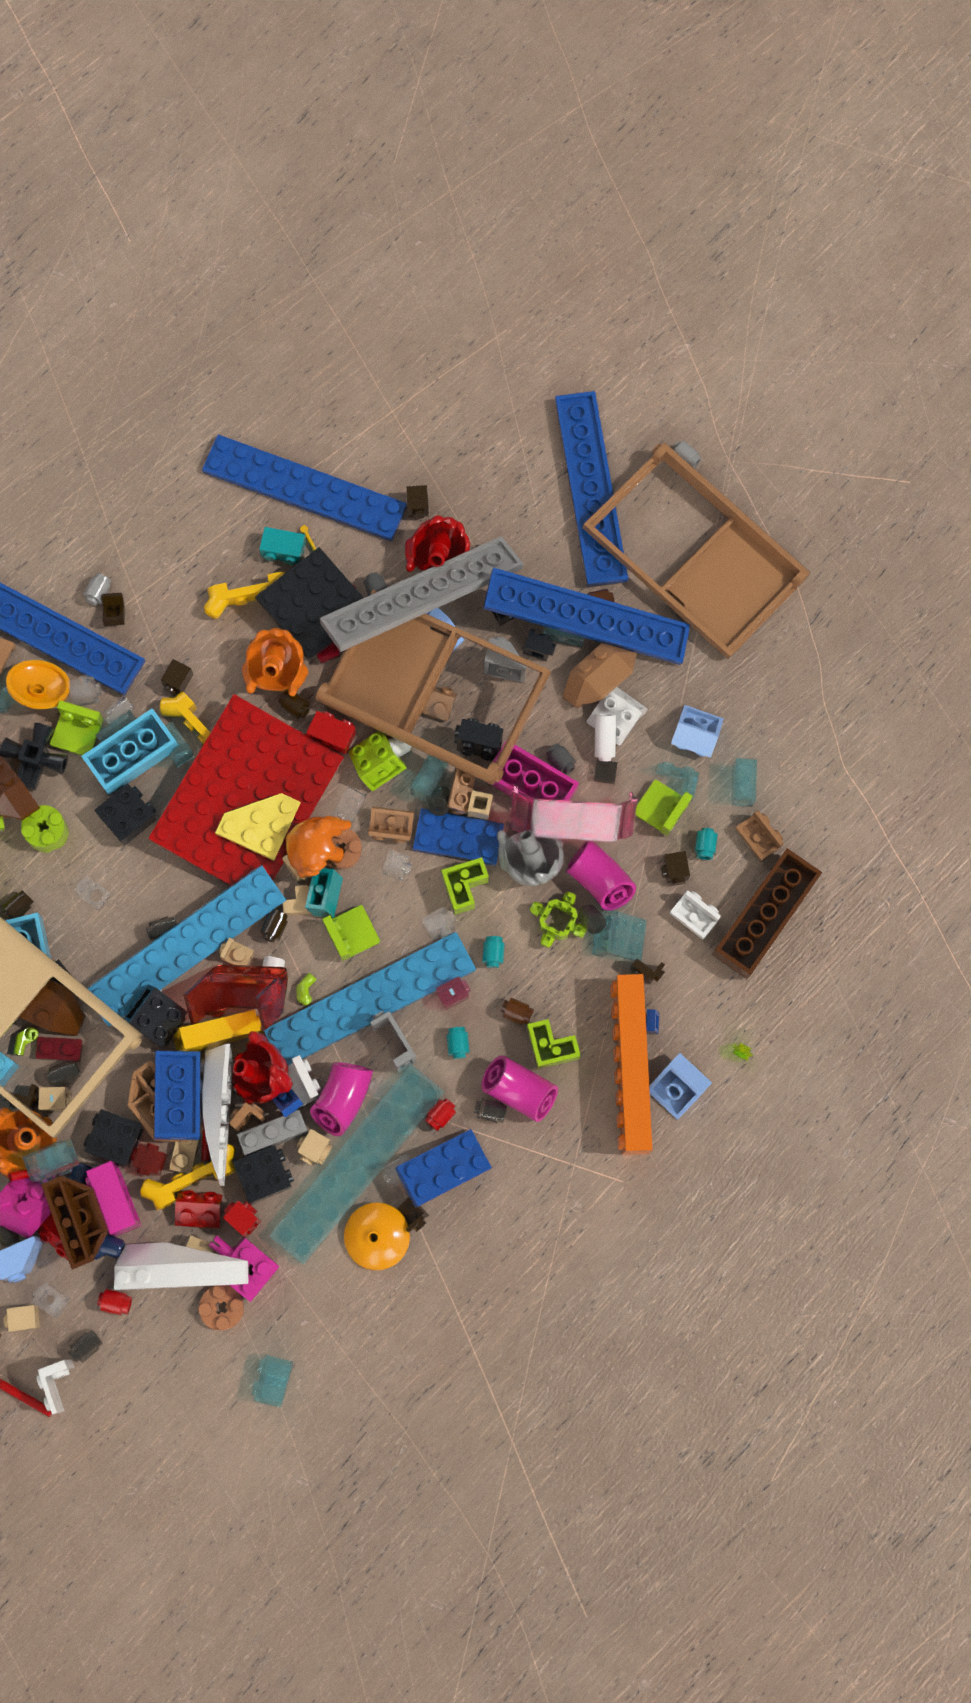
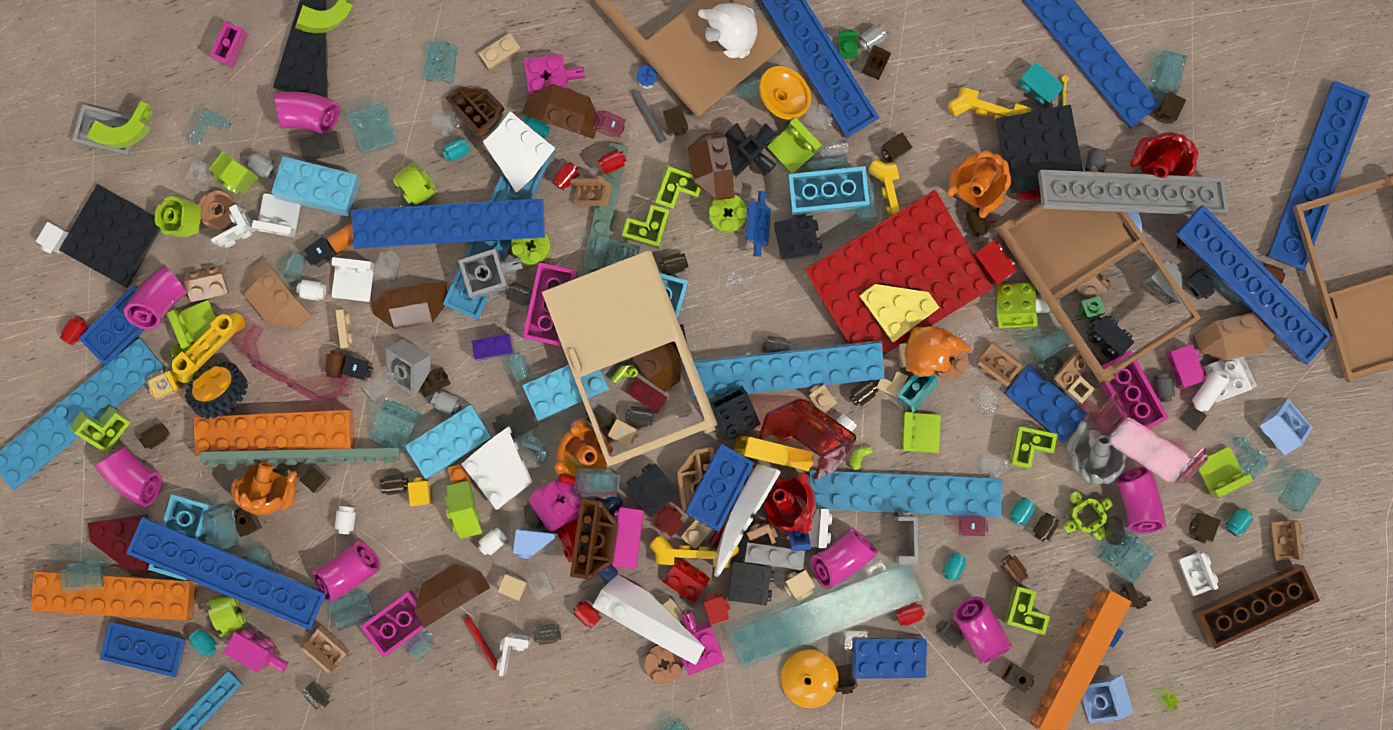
camera: 30 degrees right, 10 degrees up
(77, 607) = (848, 44): none -> green bracket
(79, 820) = (758, 223): none -> blue plate
(397, 470) = (1168, 72): none -> clear light blue brick
(447, 722) = (1092, 308): none -> green bracket
(524, 953) = (1045, 527): none -> dark brown brick
(570, 727) = (1186, 366): none -> dark pink brick
(582, 1114) = (1018, 678): none -> dark brown brick

